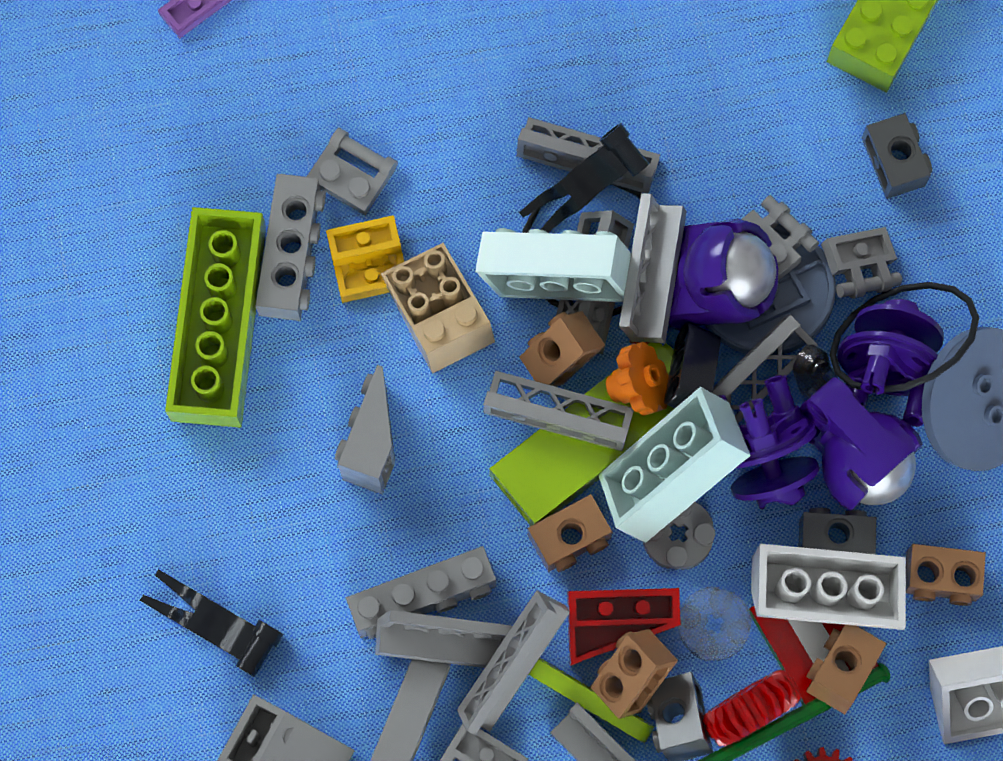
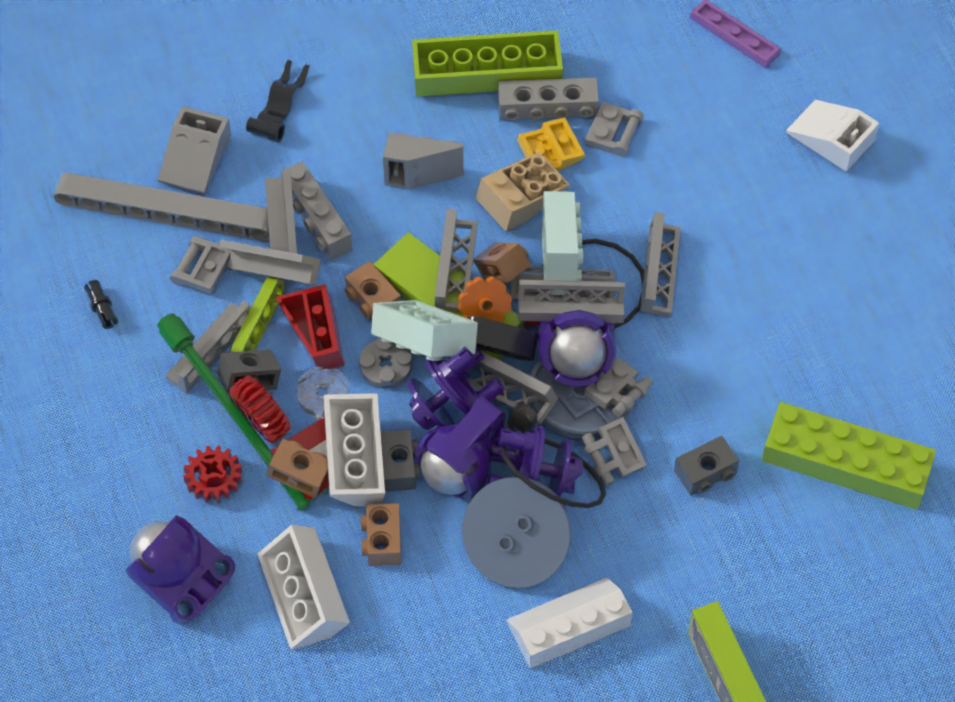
camera: 80 degrees right, 15 degrees down
(591, 176) = (638, 262): black flag -> none
(633, 673) = (273, 330): medium nougat brick -> none

